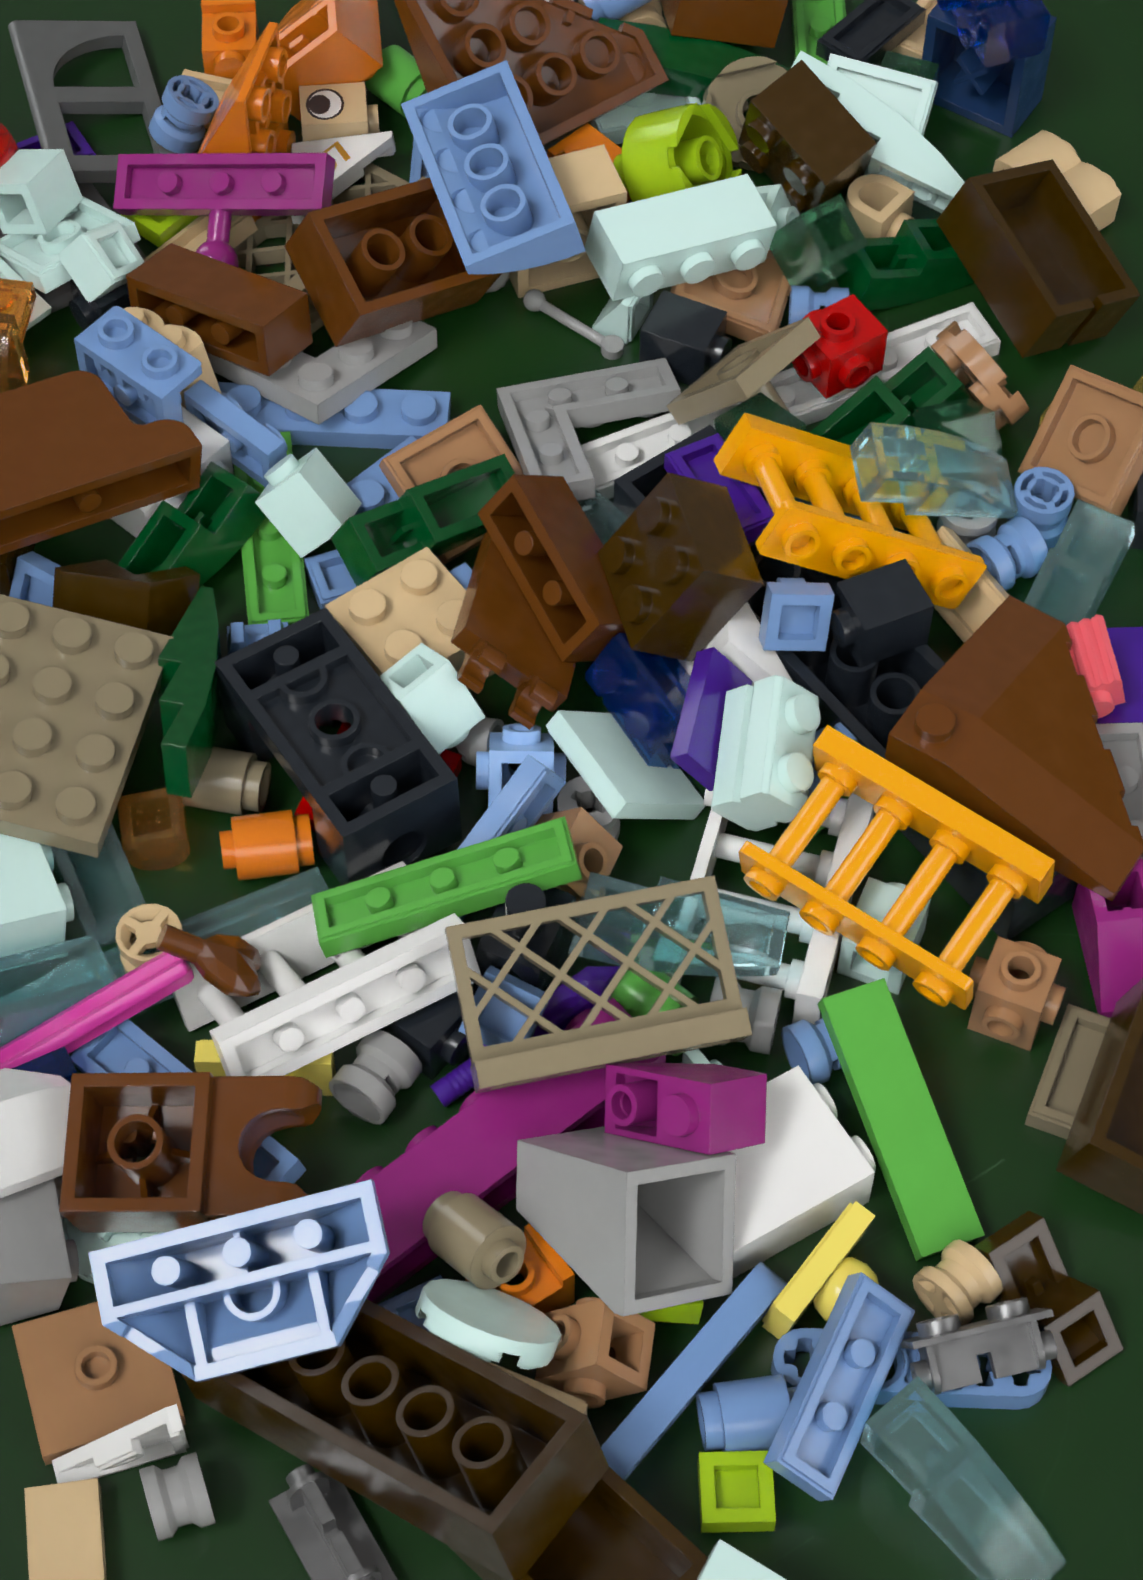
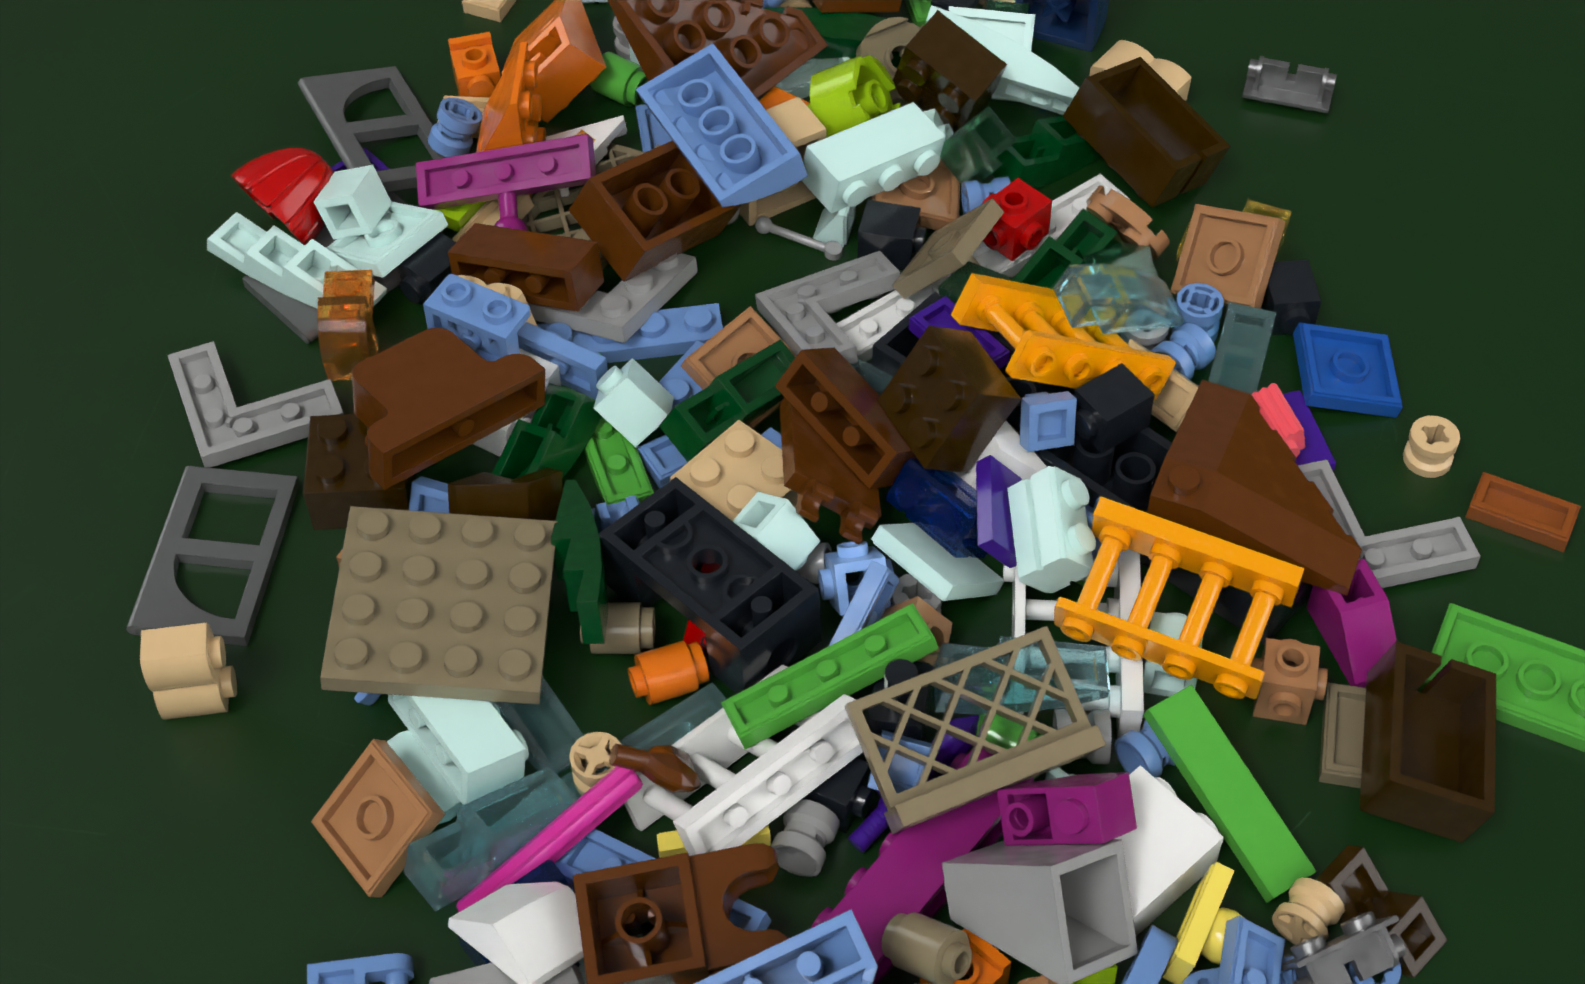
camera: 10 degrees left, 5 degrees down
(100, 260) = (422, 244): light aqua slope -> none
(154, 829) = (575, 675): clear orange brick -> none
(336, 111) = (574, 108): tan brick -> none
(879, 205) = (1015, 111): tan plate -> none

